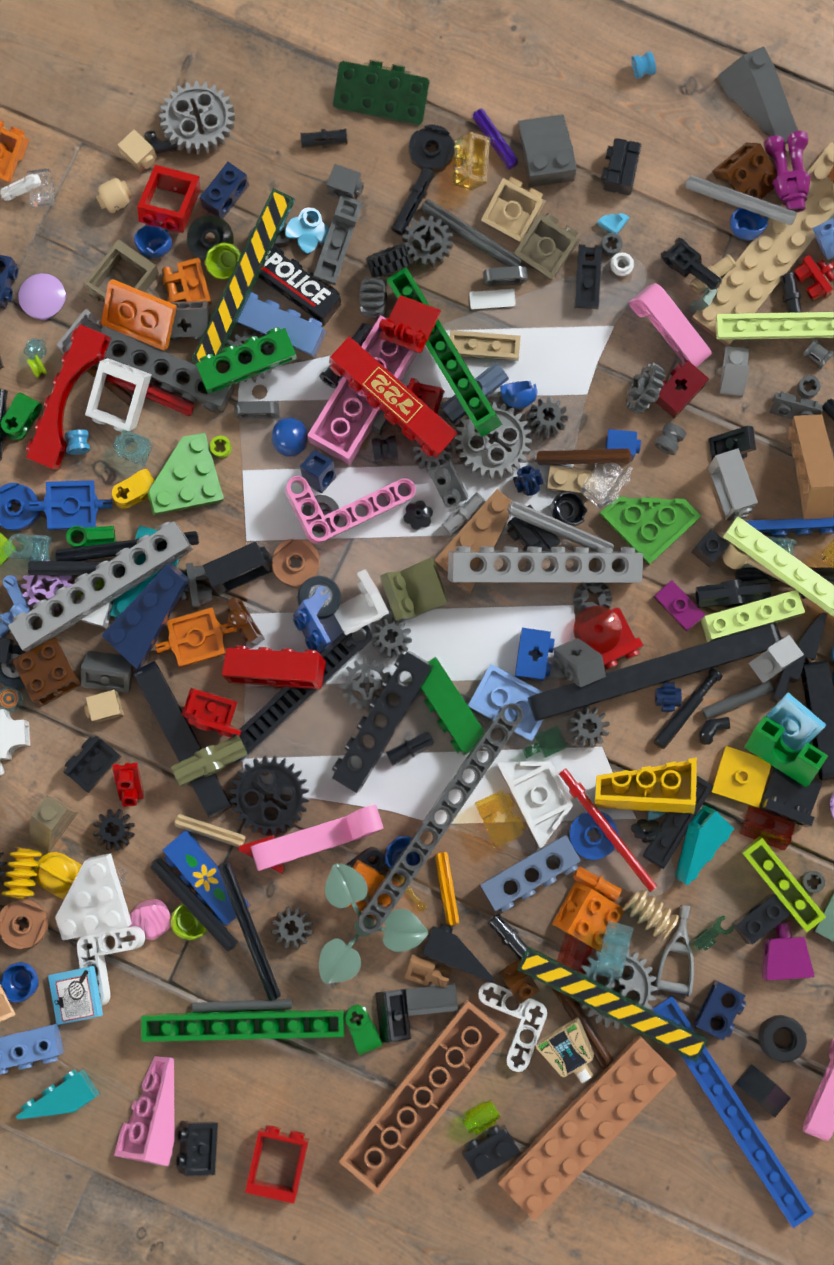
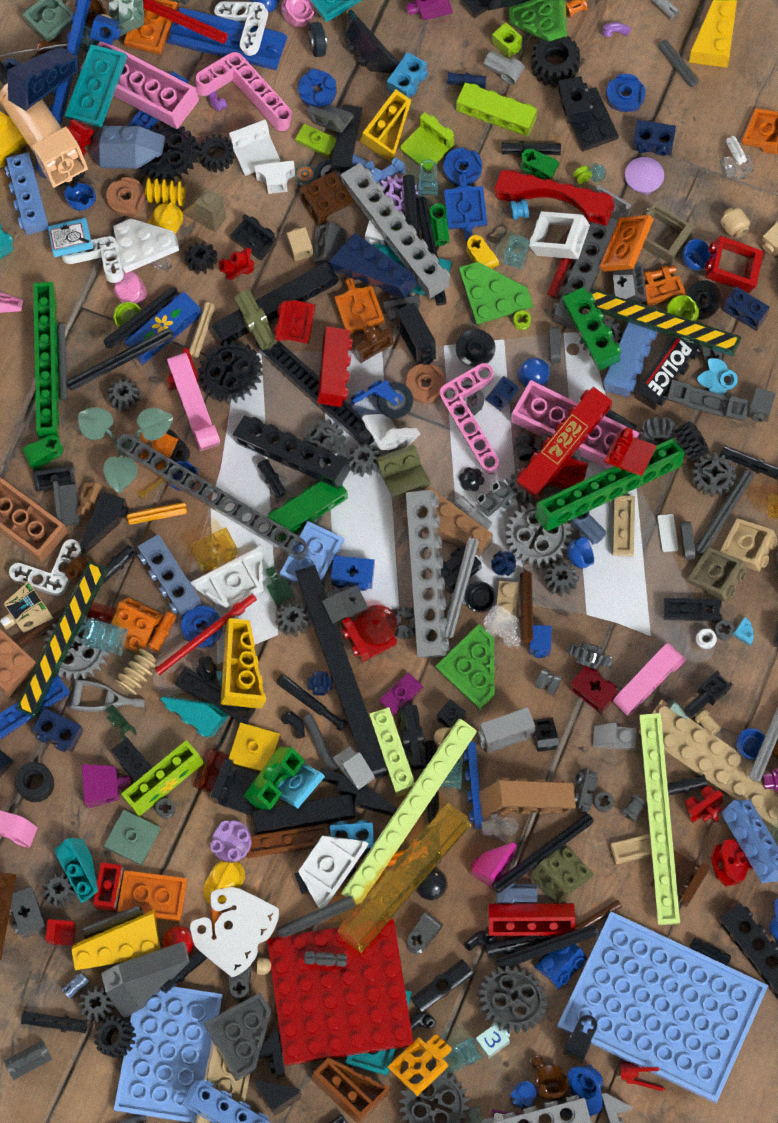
camera: 90 degrees right, 10 degrees down
(252, 490) = (478, 340): none -> black dish

